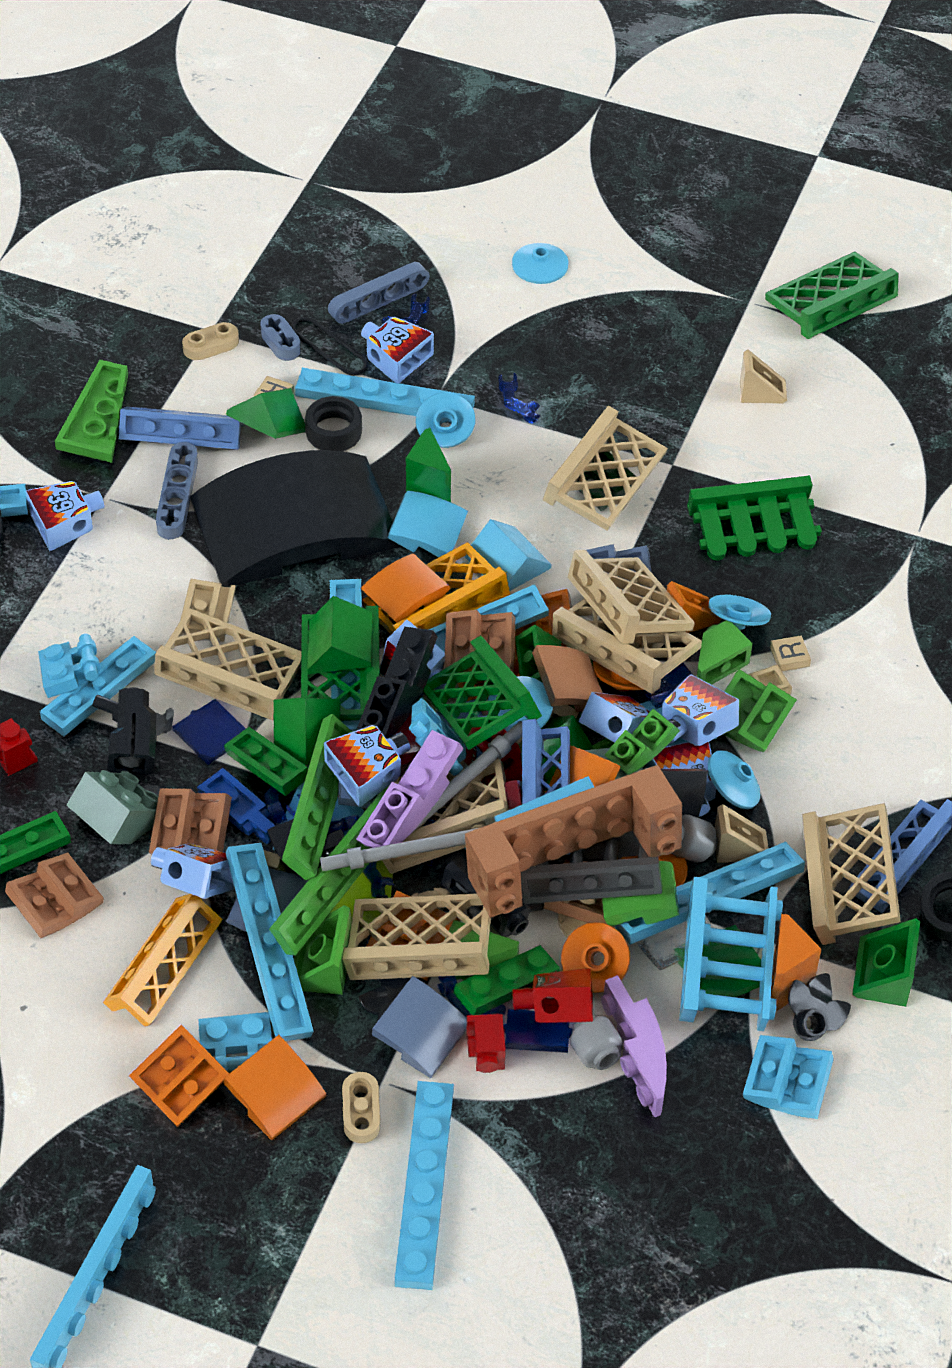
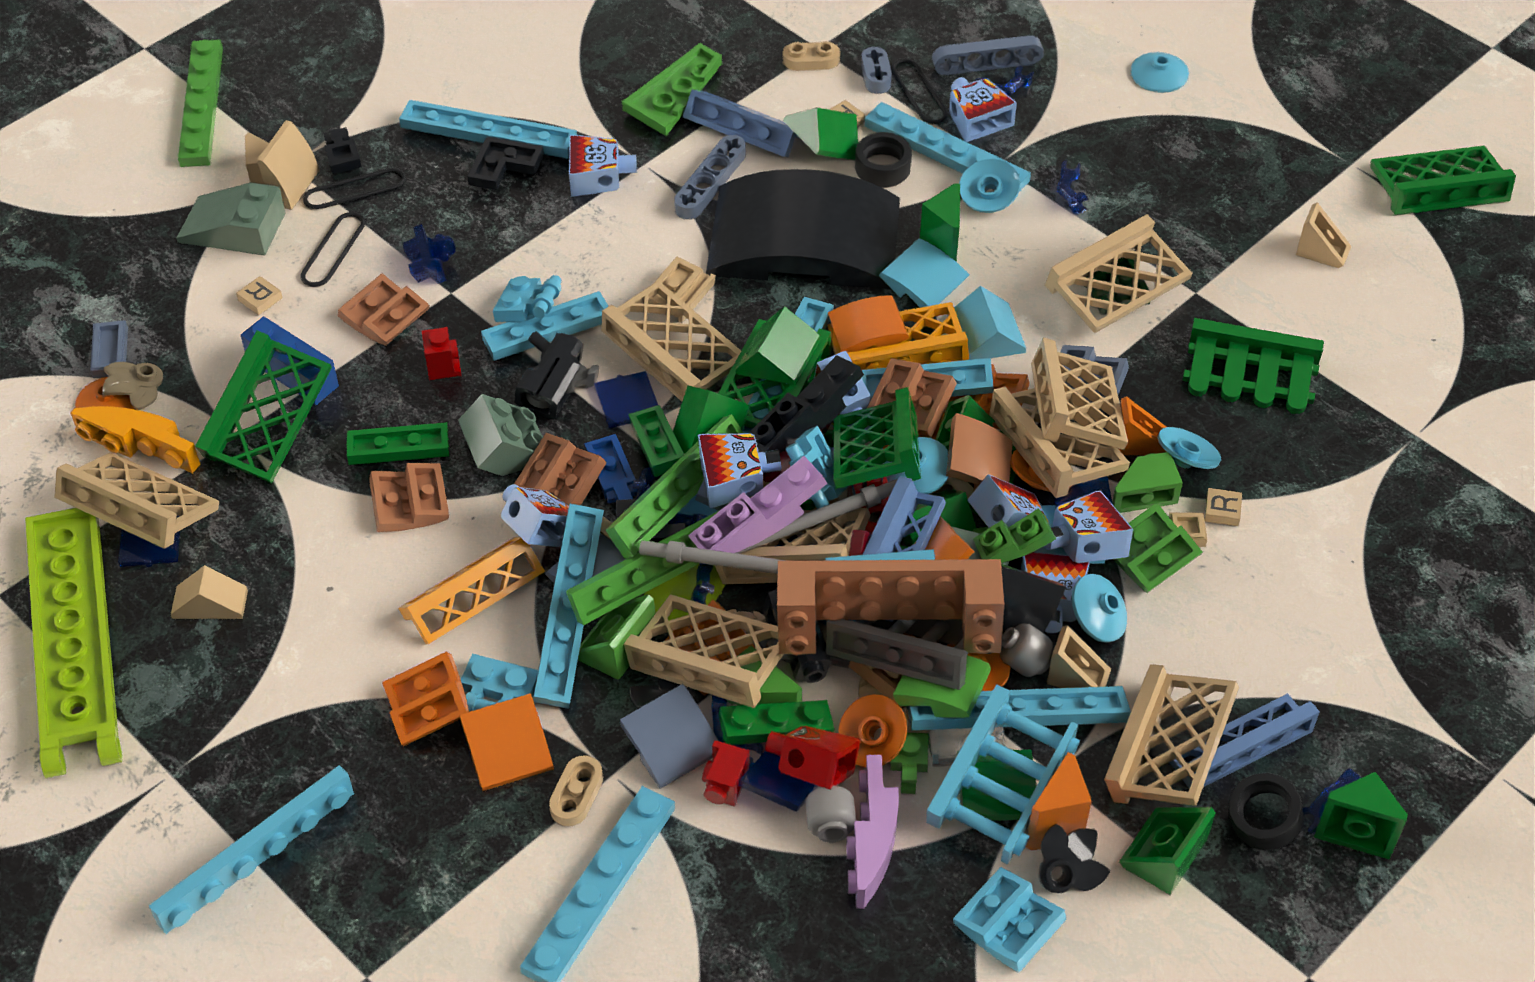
camera: 25 degrees right, 0 degrees up
(641, 973) = (910, 760): none -> bright green plate

